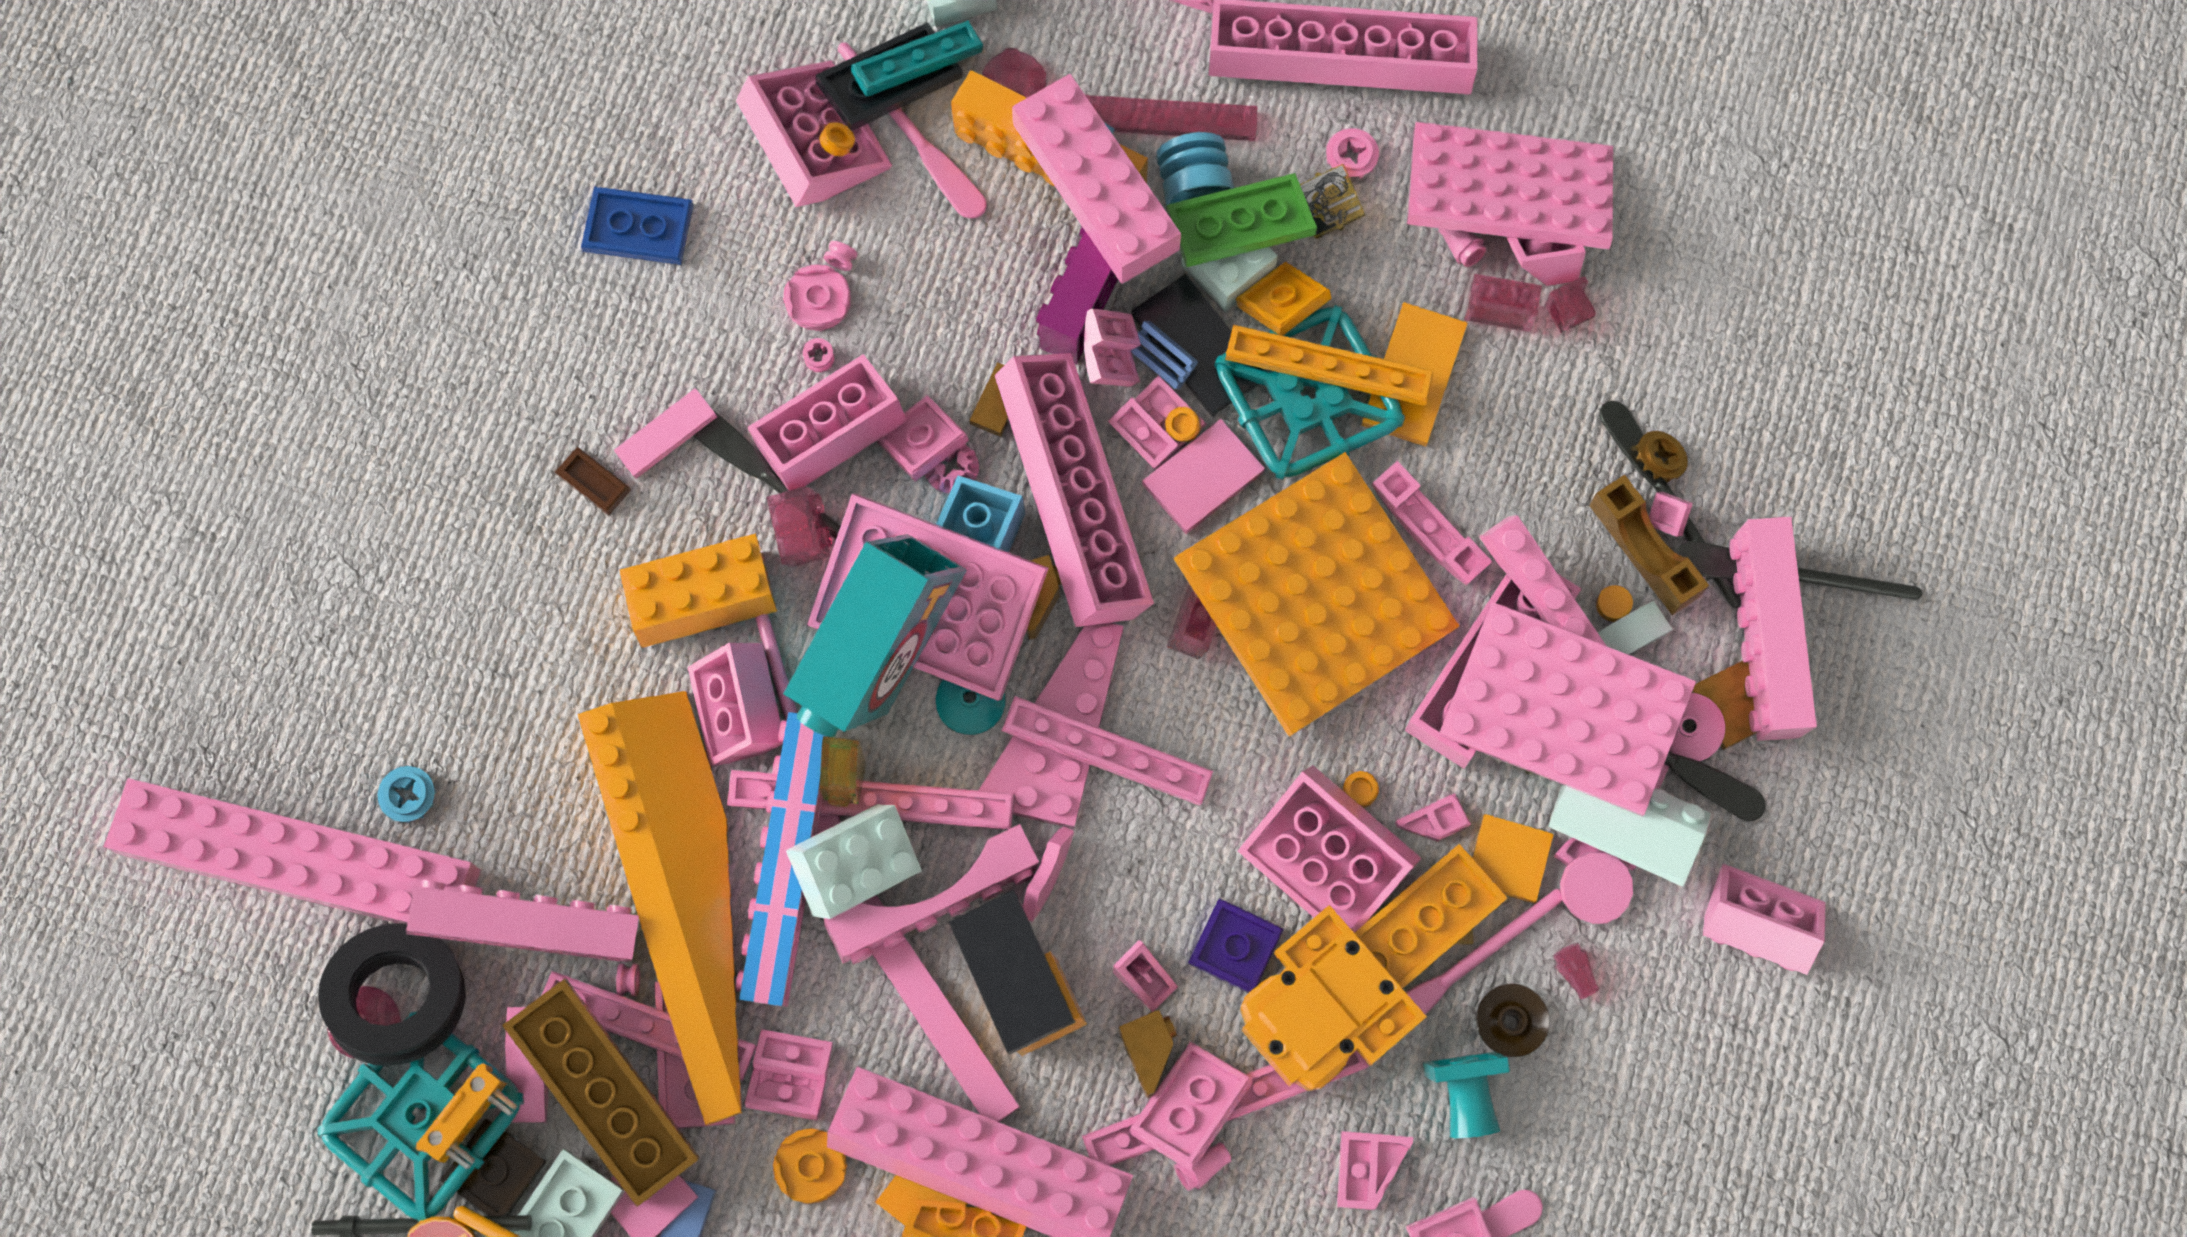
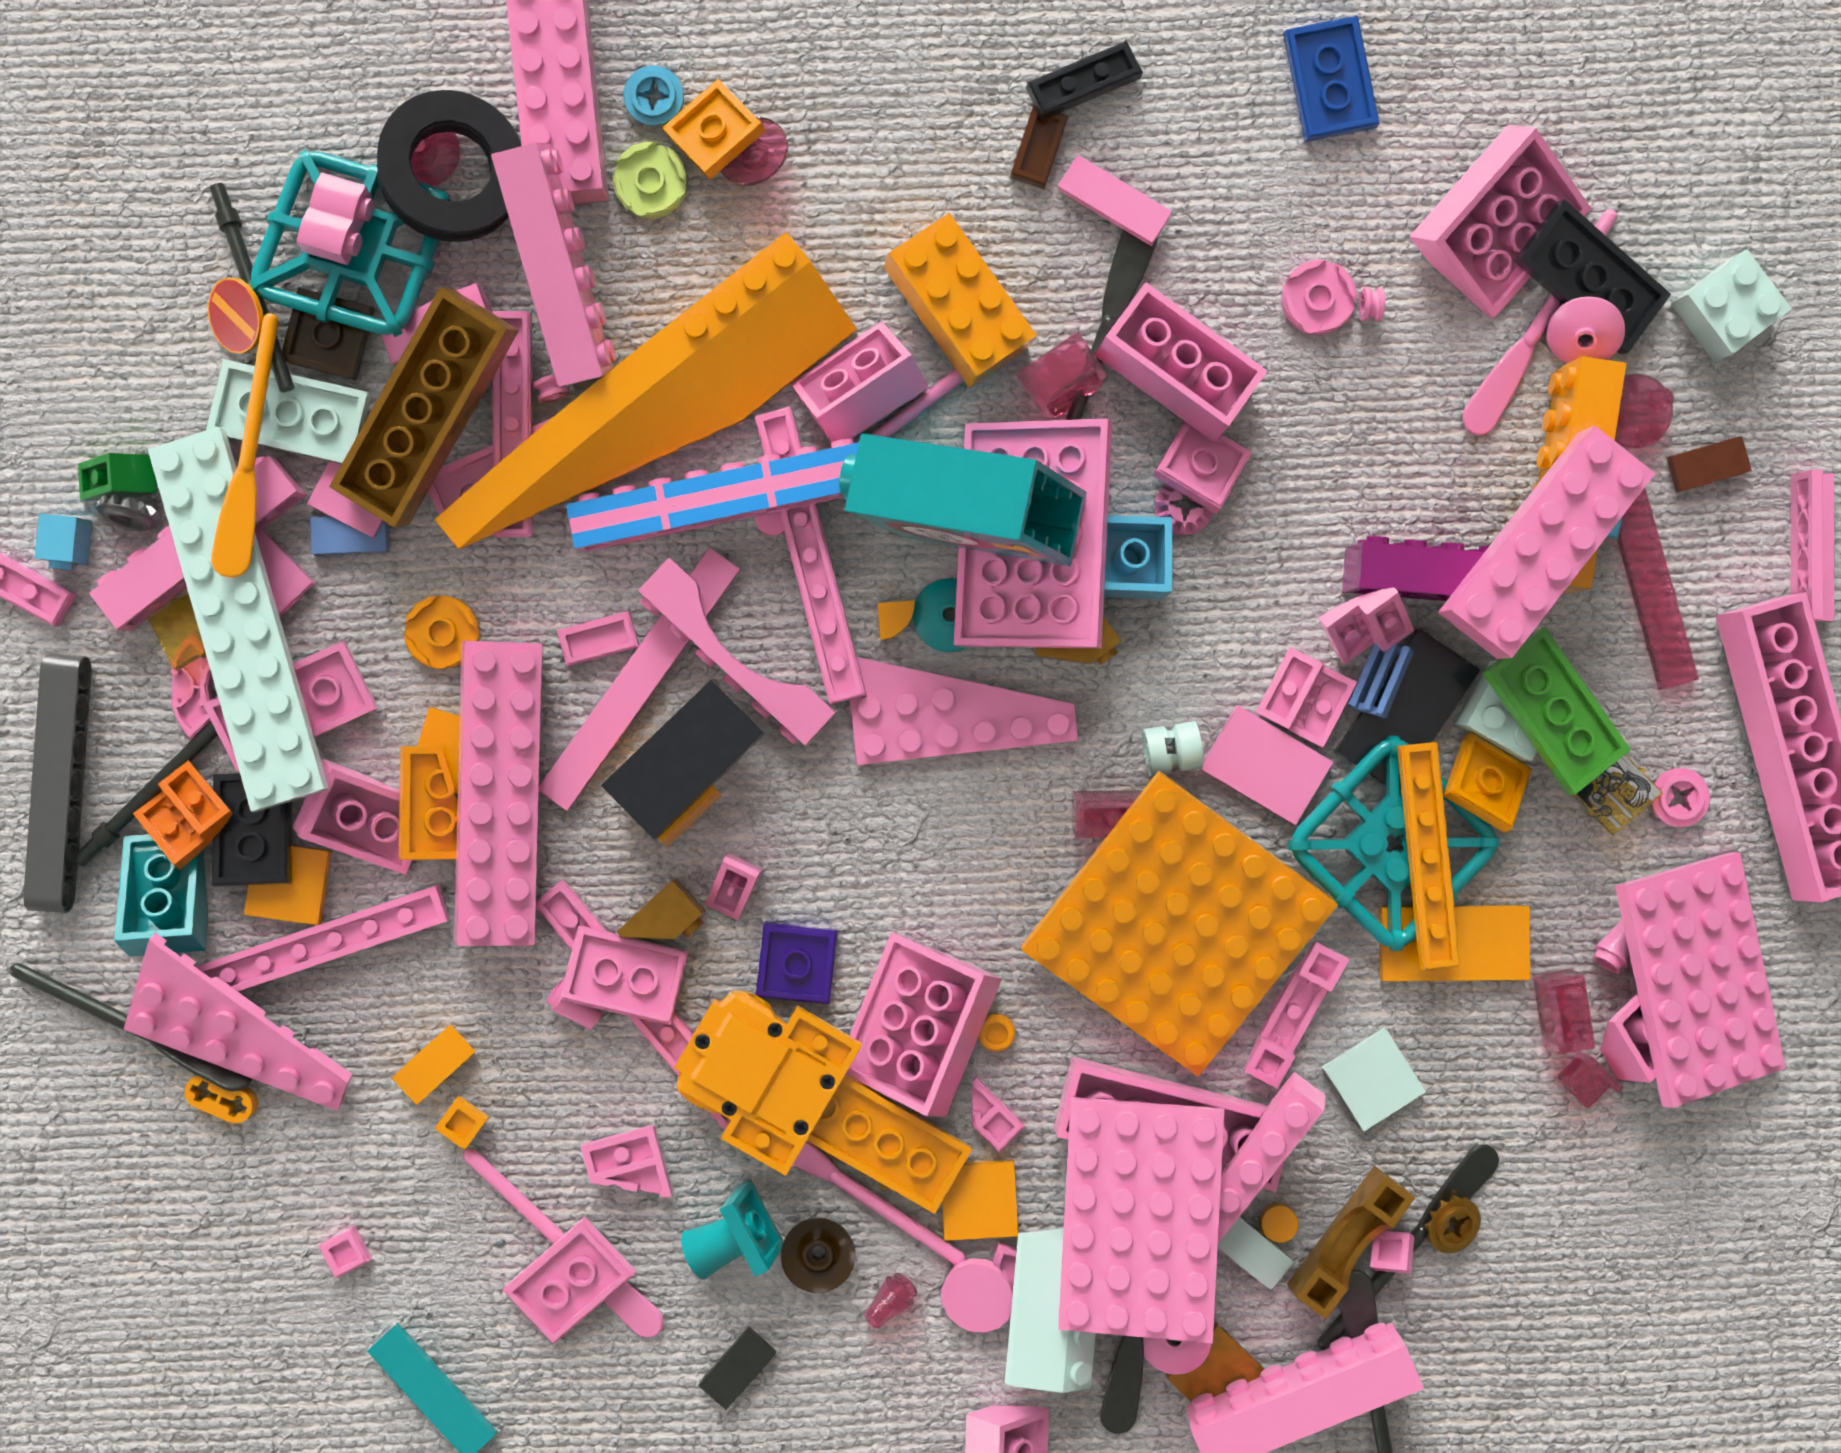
camera: 65 degrees right, 15 degrees up
(394, 1112) = (335, 219): none -> bright pink brick
(459, 749) = (714, 129): none -> light orange plate
(462, 1115) = (356, 283): light orange piece -> none
(479, 825) = (650, 180): none -> yellowish green tile
(482, 719) = (771, 153): none -> clear pink dish
(552, 423) = (1084, 80): none -> black tile
(789, 1074) = (519, 578): bright pink slope -> none
(827, 359) = (1253, 334): bright pink bush -> none
(837, 139) = (1499, 250): light orange tile -> none
(841, 771) = (818, 518): clear yellow slope -> none
(853, 861) = (736, 564): light aqua brick -> none
(872, 1021) = (598, 639): none -> bright pink tile
(917, 58) = (1606, 279): teal tile -> none
(919, 94) = (1581, 317): none -> bright pink dish
(954, 748) = (894, 617): none -> light orange tile
(990, 409) = (1274, 527): pearl gold tile -> none
(1048, 872) = (800, 755): bright pink tile -> none
(1073, 489) = (1202, 639): bright pink brick -> none
(1080, 40) = (1709, 464): none -> copper tile
(1107, 751) = (942, 770): bright pink tile -> none
(1160, 544) = (1185, 746): none -> light aqua wheel
(1183, 424) = (1312, 726): light orange tile -> none
(1193, 166) = (1599, 639): medium azure wheel -> none
(1512, 480) = (1373, 1079): none -> light aqua tile
(1596, 1137) = (737, 1368): none -> pearl dark grey tile

